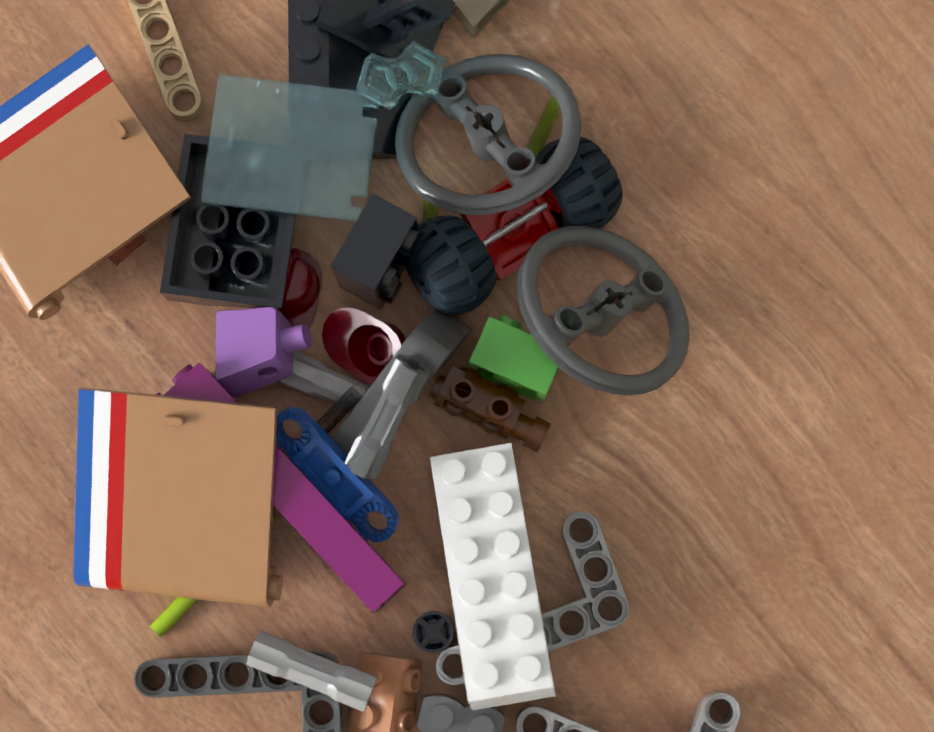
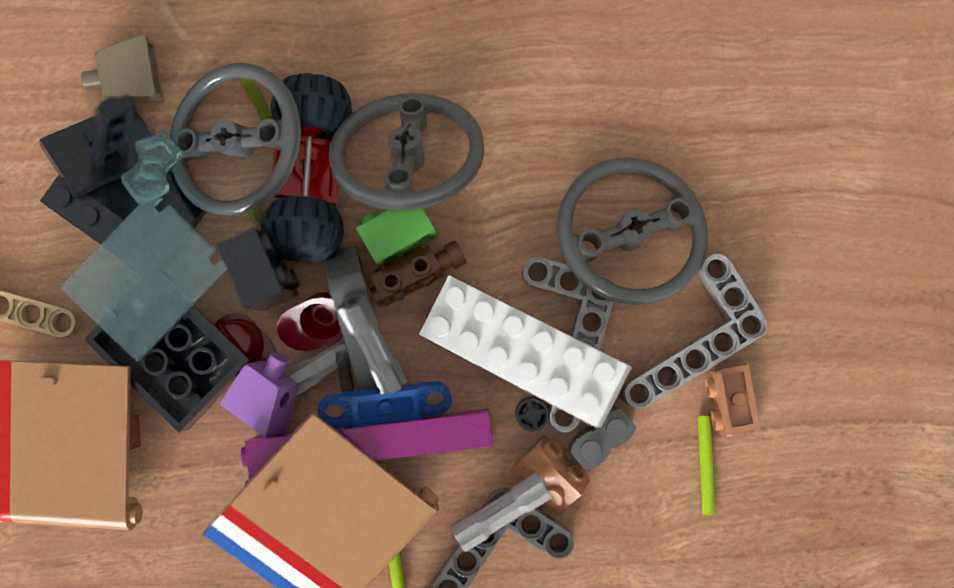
camera: 50 degrees left, 5 degrees up
(762, 632) = (685, 204): none -> dark grey piece

